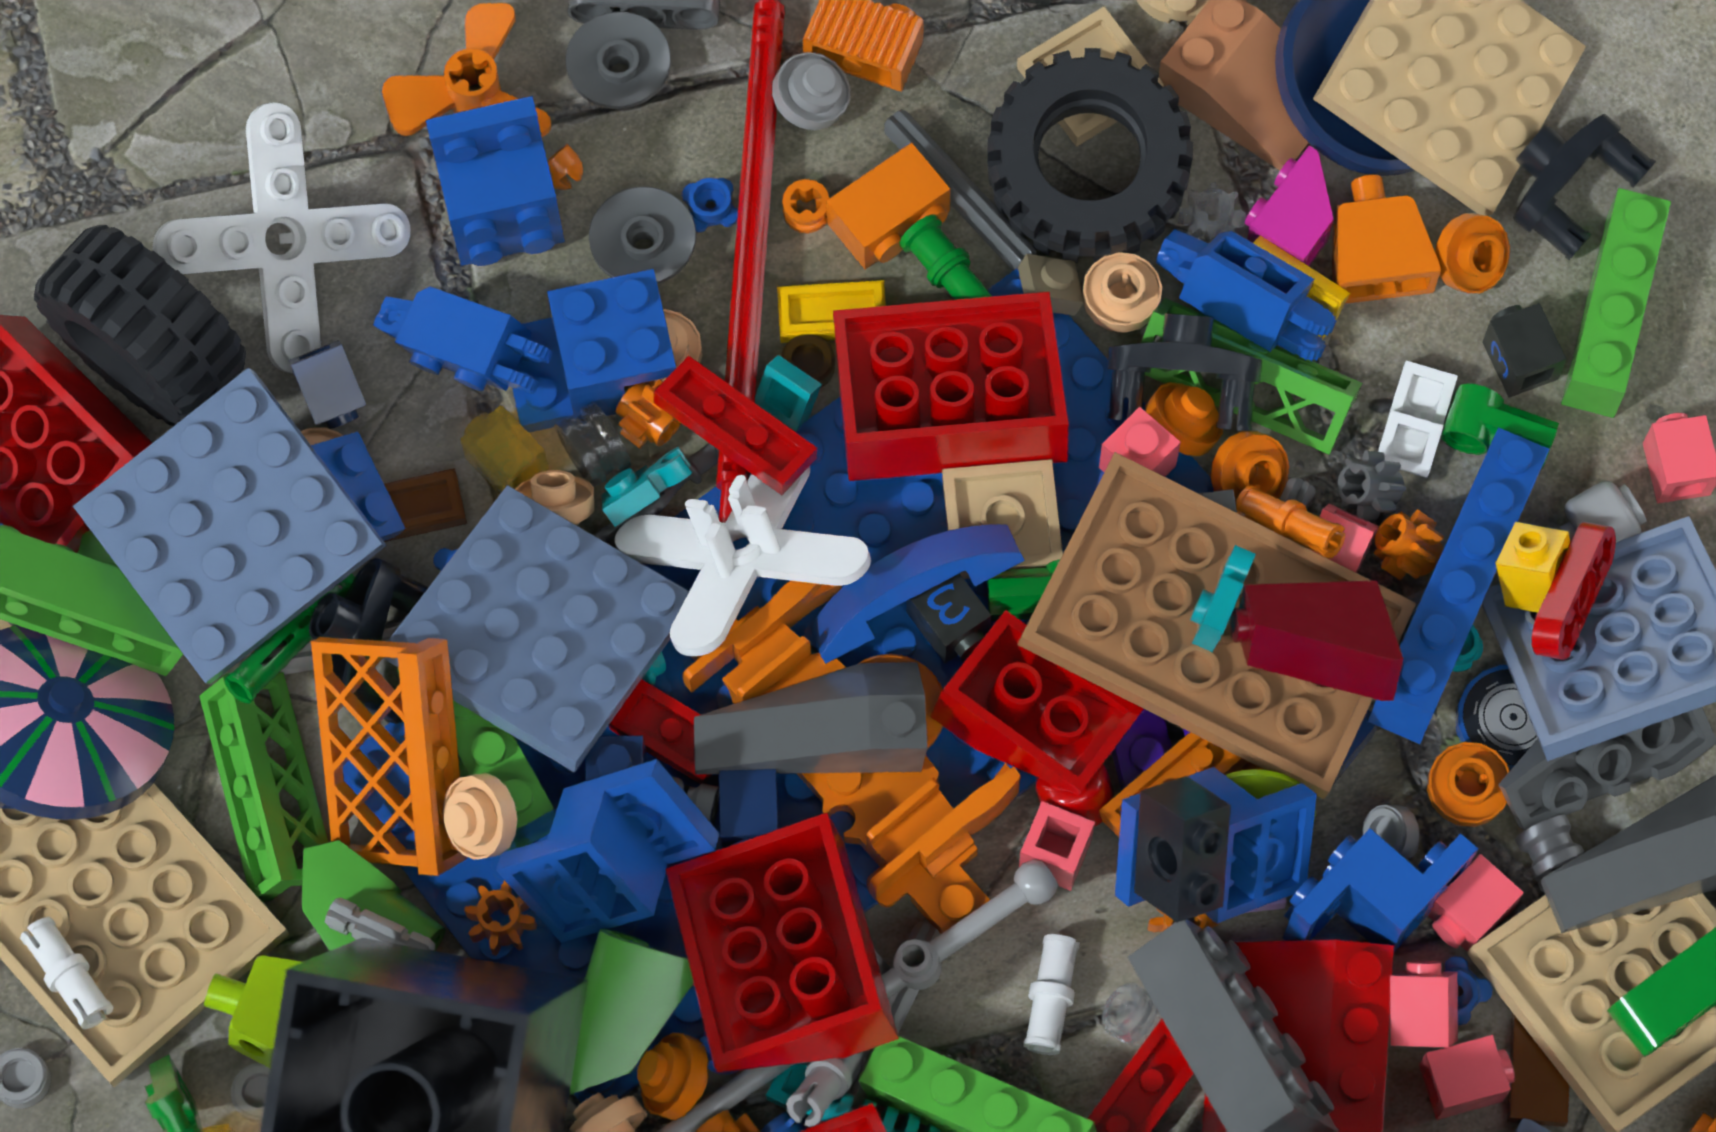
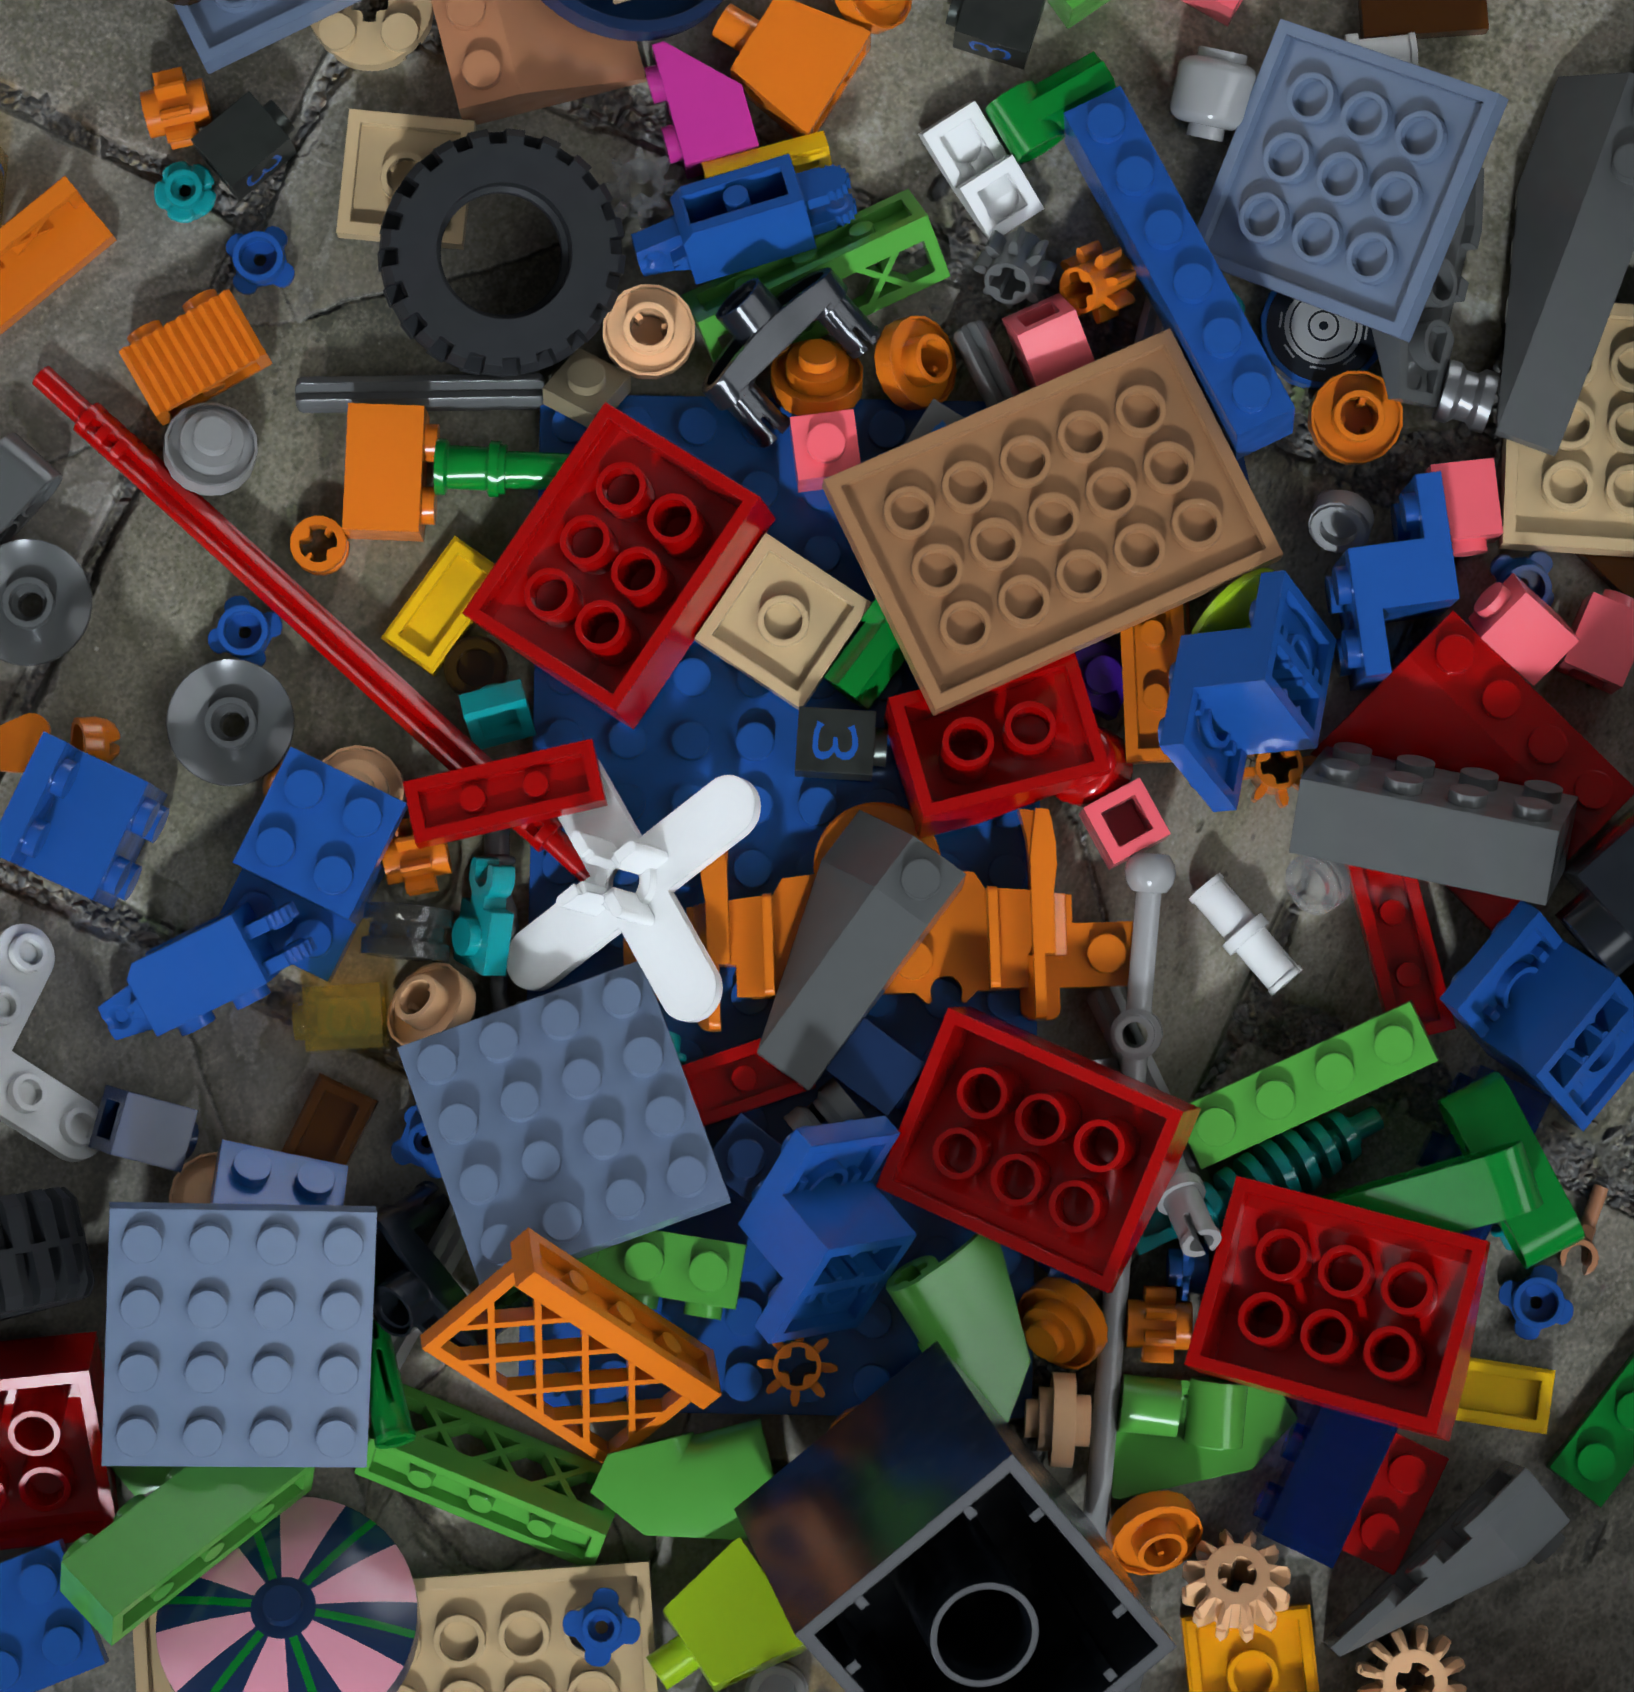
camera: 55 degrees left, 15 degrees up
(226, 938) = (601, 1645): none -> blue plate
(347, 918) = (726, 1485): light grey axle -> none
(480, 816) = (706, 1319): light nougat plate -> none
(907, 573) = (781, 748): blue slope -> none
(960, 18) = (247, 247): none -> blue plate
(1182, 848) = (1245, 730): black brick -> none
(1215, 608) = (1049, 512): teal plate -> none
(1291, 521) = (1004, 373): orange pin -> none
(1321, 635) = (1151, 444): dark red slope -> none
(1530, 564) = (1223, 196): yellow brick -> none
(1573, 591) = (1273, 182): red beam -> none

